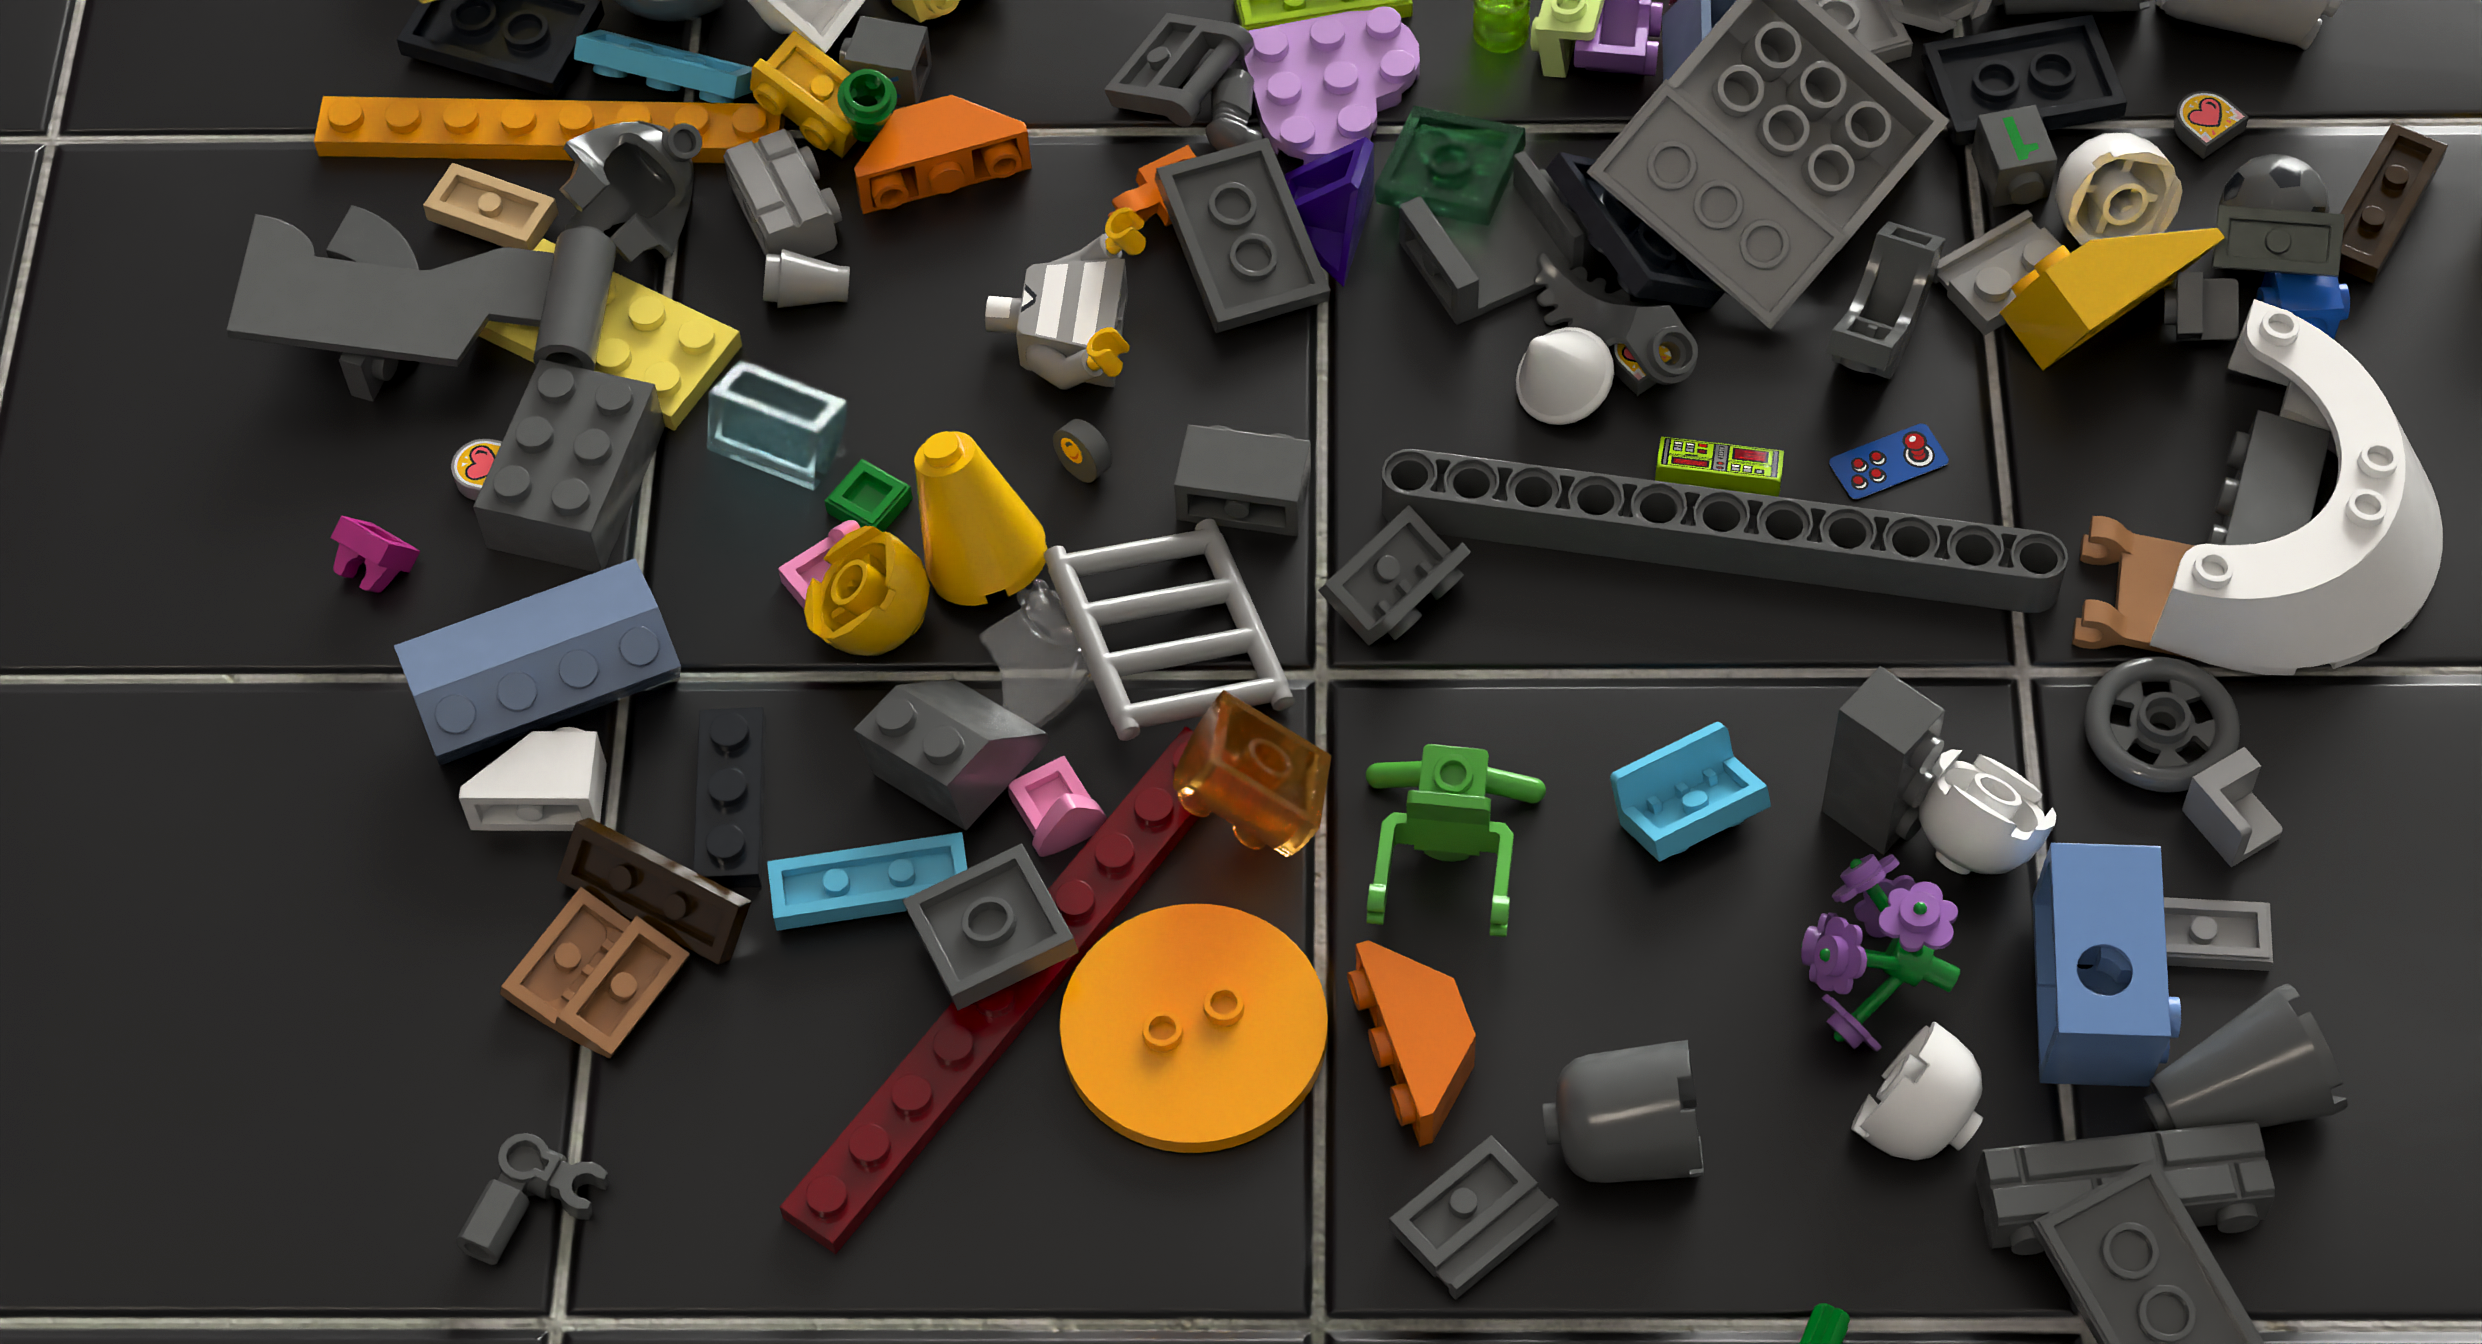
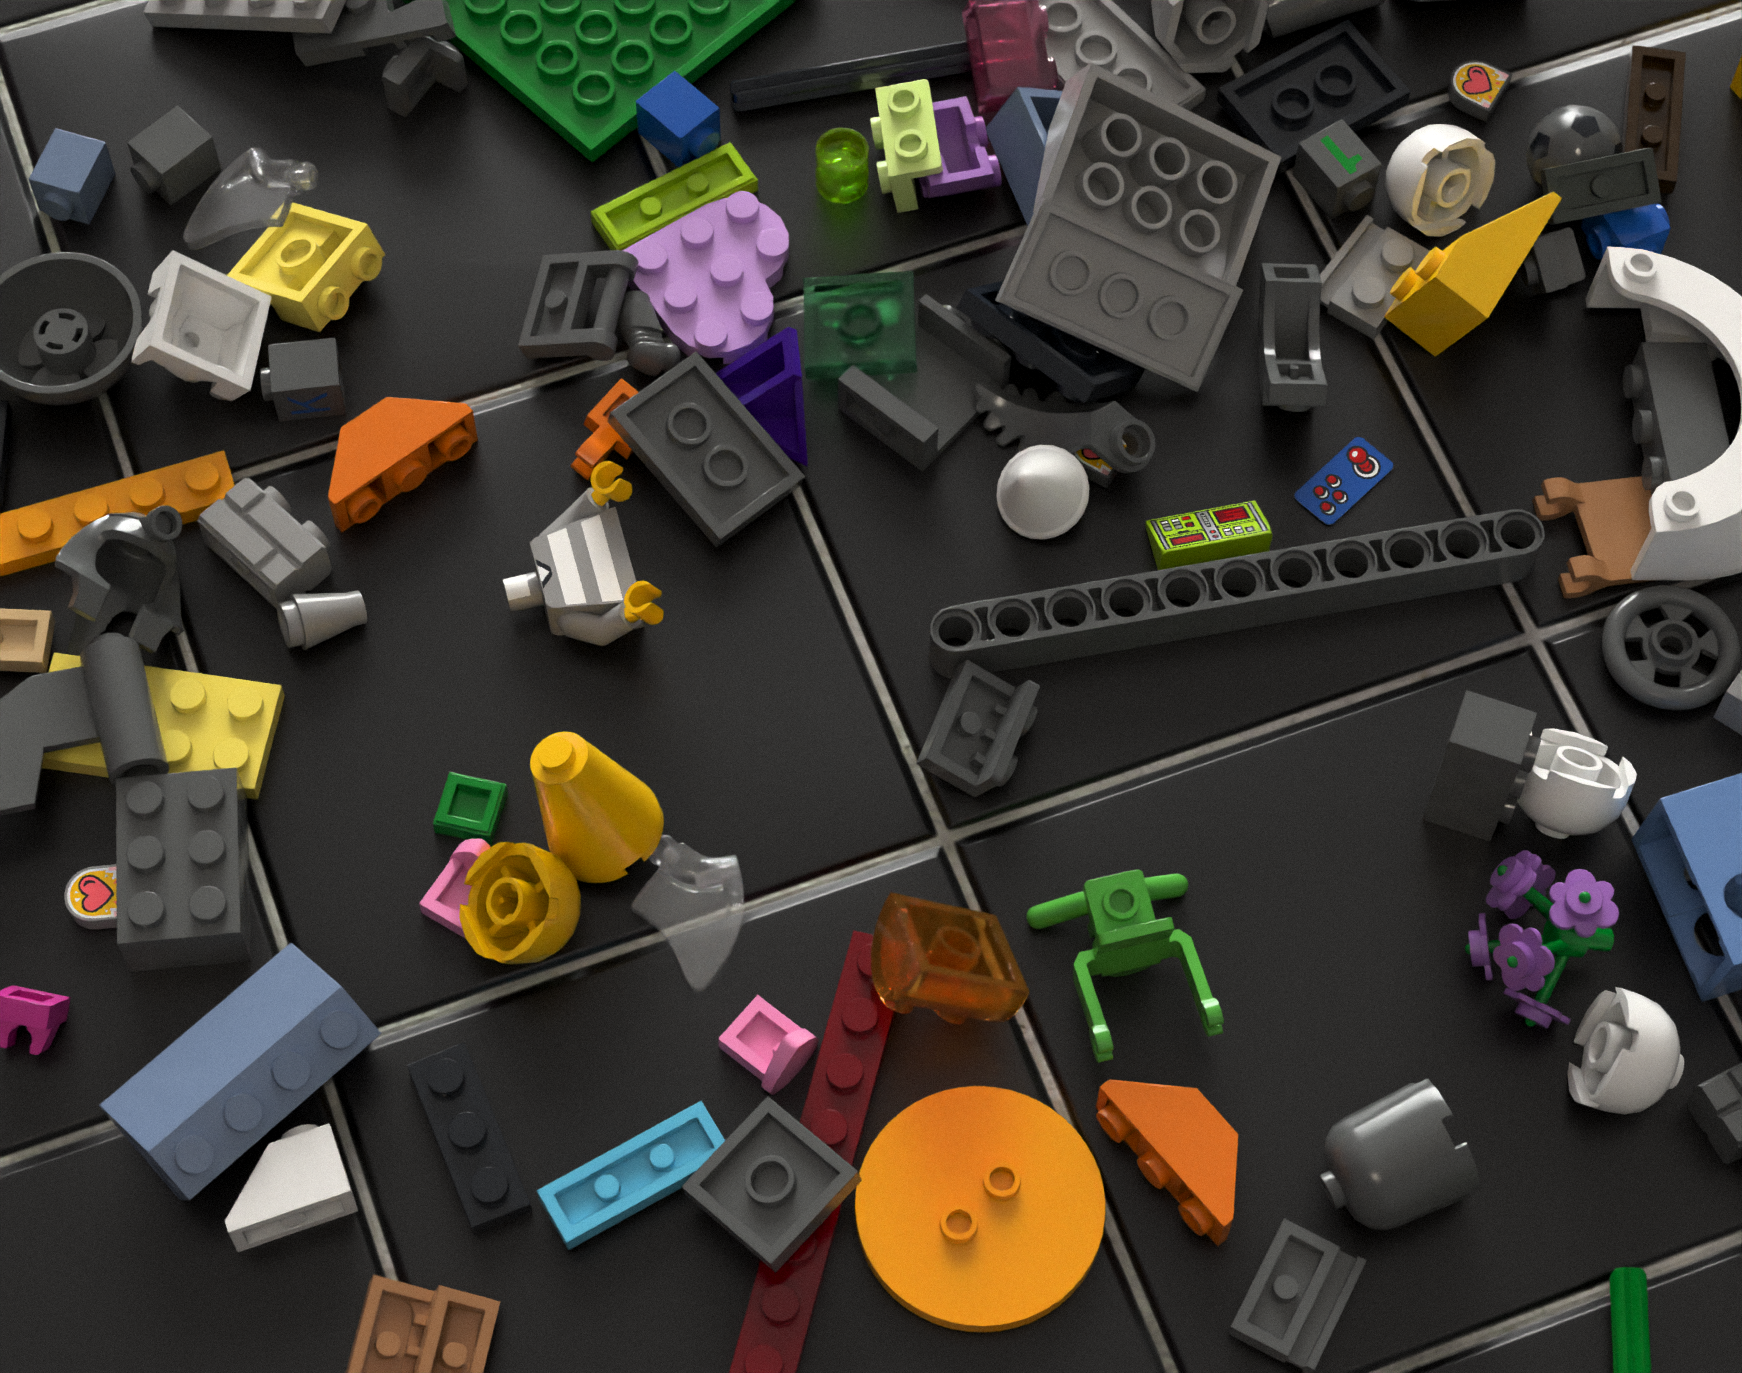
camera: 25 degrees left, 5 degrees up
(654, 889) = (442, 1253): dark brown plate -> none
(663, 66) = (97, 446): medium azure plate -> none
(775, 424) = (356, 765): clear light blue brick -> none
(804, 88) = (255, 433): yellow bracket -> none
(867, 102) = (317, 429): green cone -> none
(947, 746) = (654, 1023): dark grey slope -> none
(1082, 450) = (648, 699): dark grey tile -> none
(1108, 667) = (767, 900): light grey bar -> none
(1243, 479) = (805, 680): dark grey brick -> none
(1686, 792) = (1313, 846): medium azure bracket -> none

